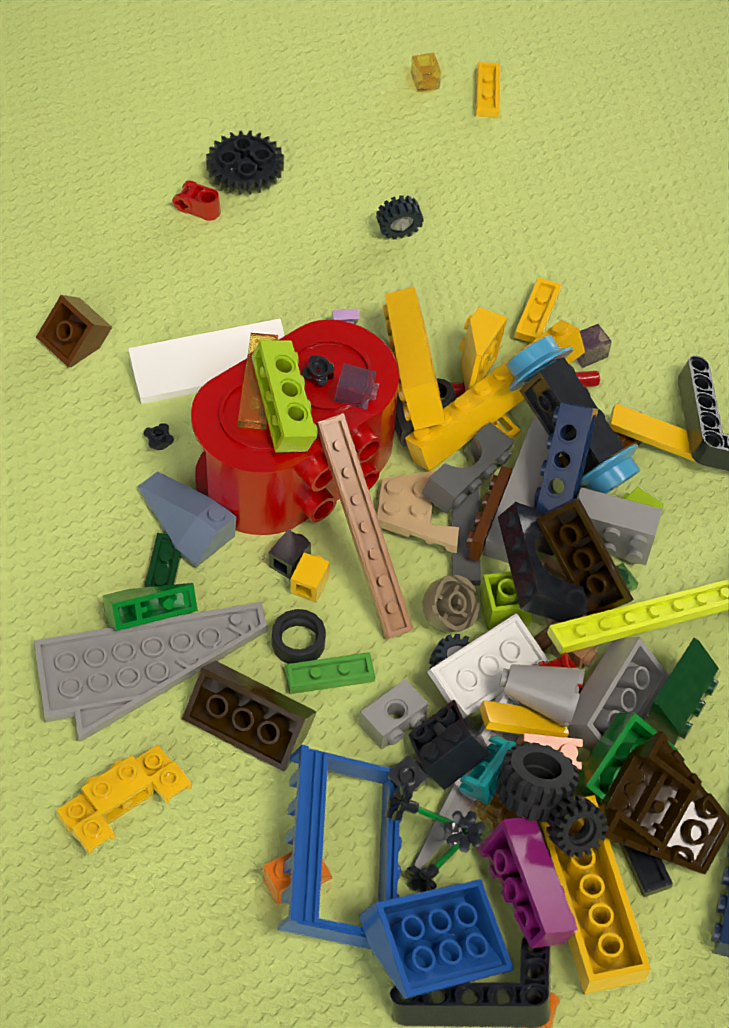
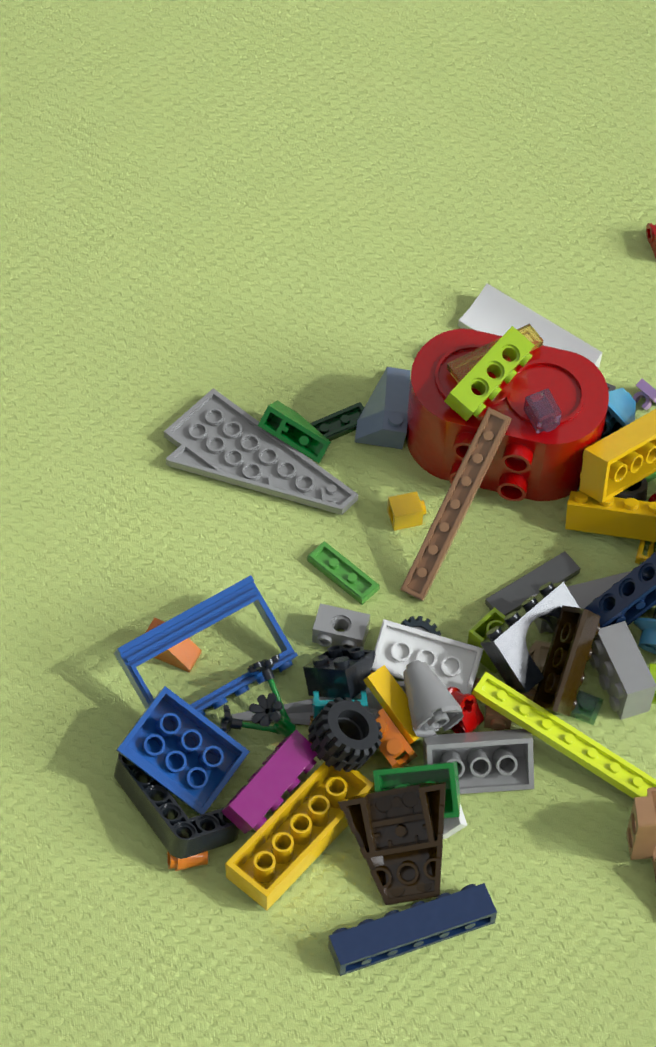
camera: 55 degrees right, 0 degrees up
(73, 330) = (476, 245): reddish brown slope -> none
(119, 791) = (145, 508): yellow bracket -> none
(248, 714) = (266, 541): dark brown slope -> none
(288, 552) = (415, 481): black brick -> none
(303, 618) = (355, 519): black tyre -> none
(321, 363) = (532, 378): black plate -> none
(409, 512) = (526, 532): tan wing -> none
(410, 772) = (292, 662): black bracket -> none
(451, 484) = (556, 544): dark grey arch -> none
(451, 604) = (457, 606): dark tan cylinder -> none
(484, 520) = (527, 587): reddish brown plate -> none
(587, 836) = (318, 787): black tyre -> none
(647, 870) = (353, 868): black tile -> none
(684, 692) = (517, 798): dark green slope -> none

